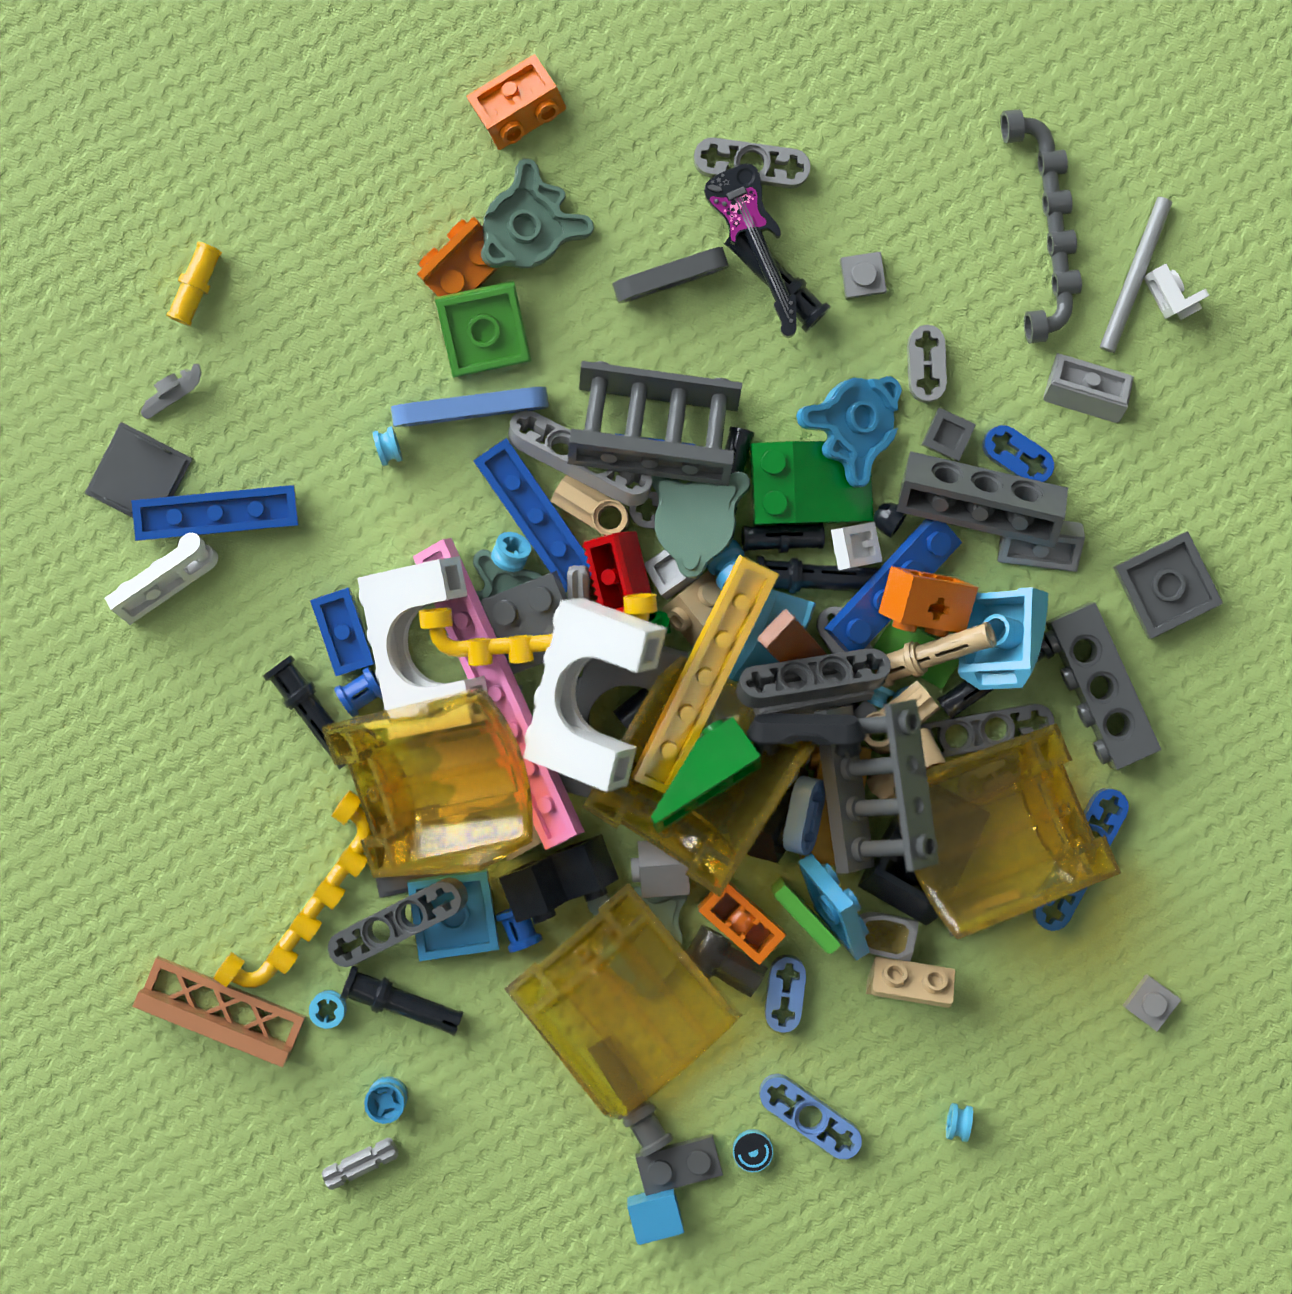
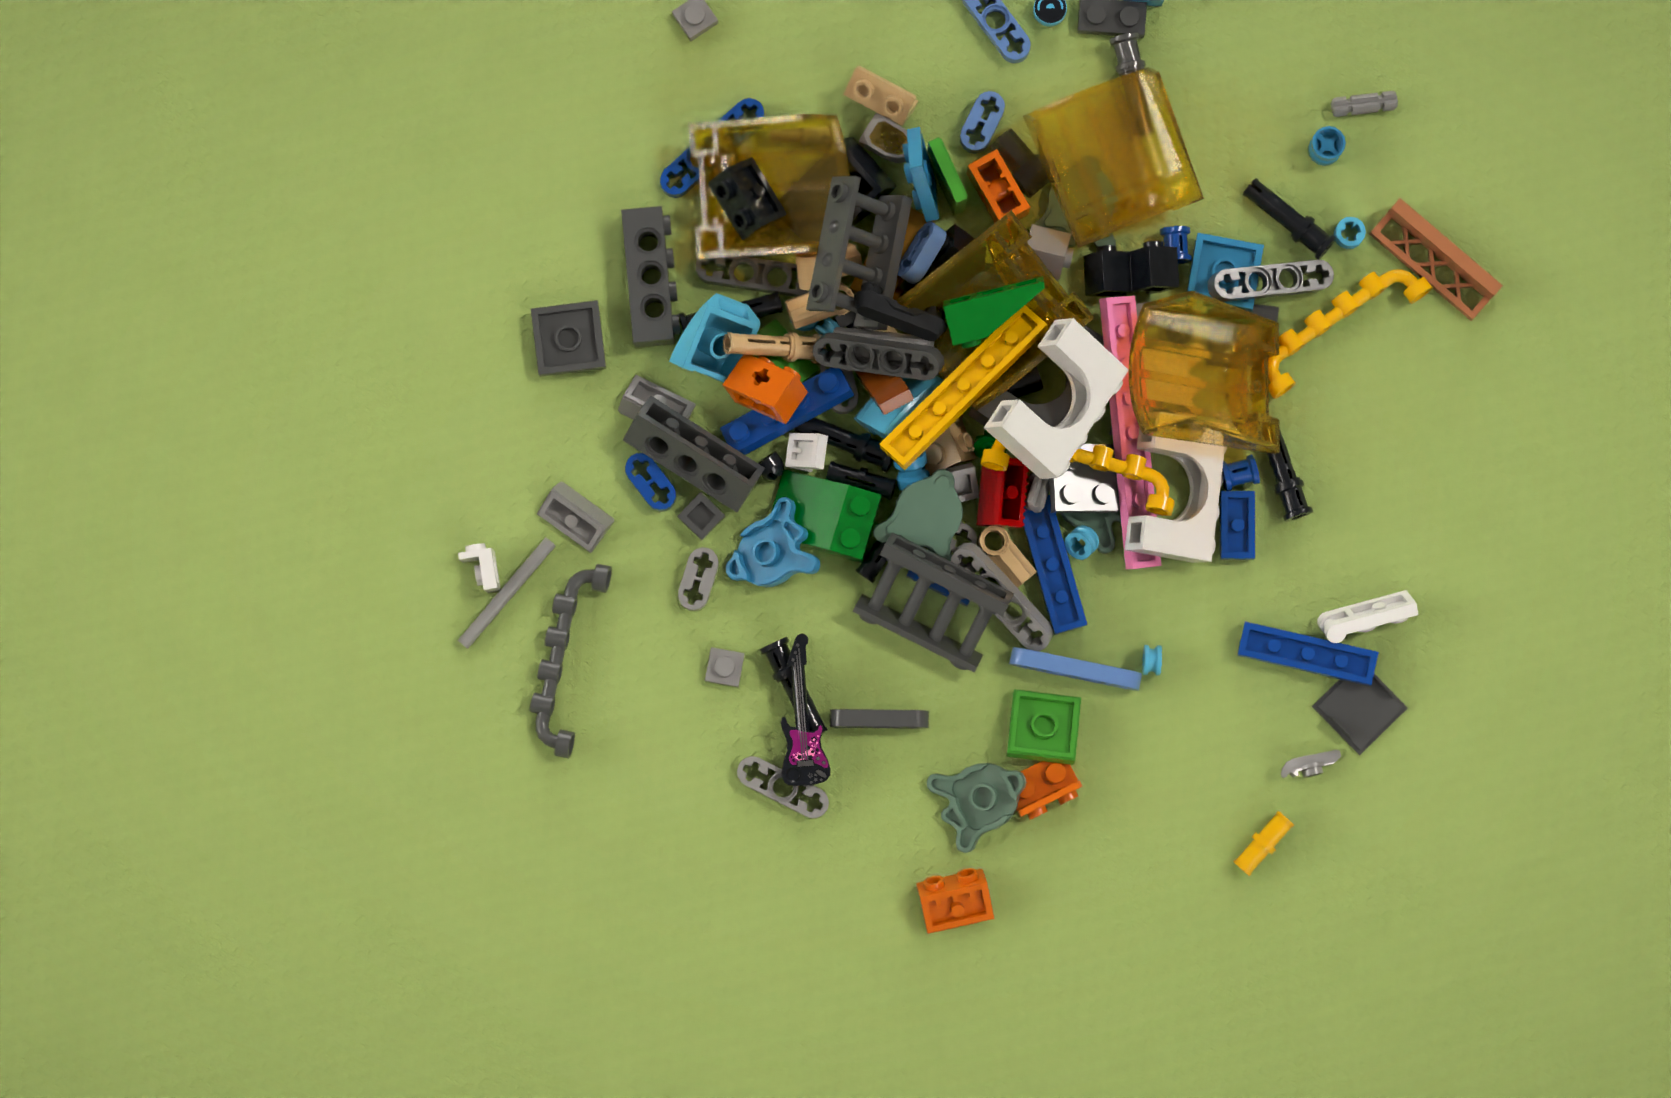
camera: 160 degrees left, 5 degrees down
(1025, 810) = (746, 198): none -> black bracket

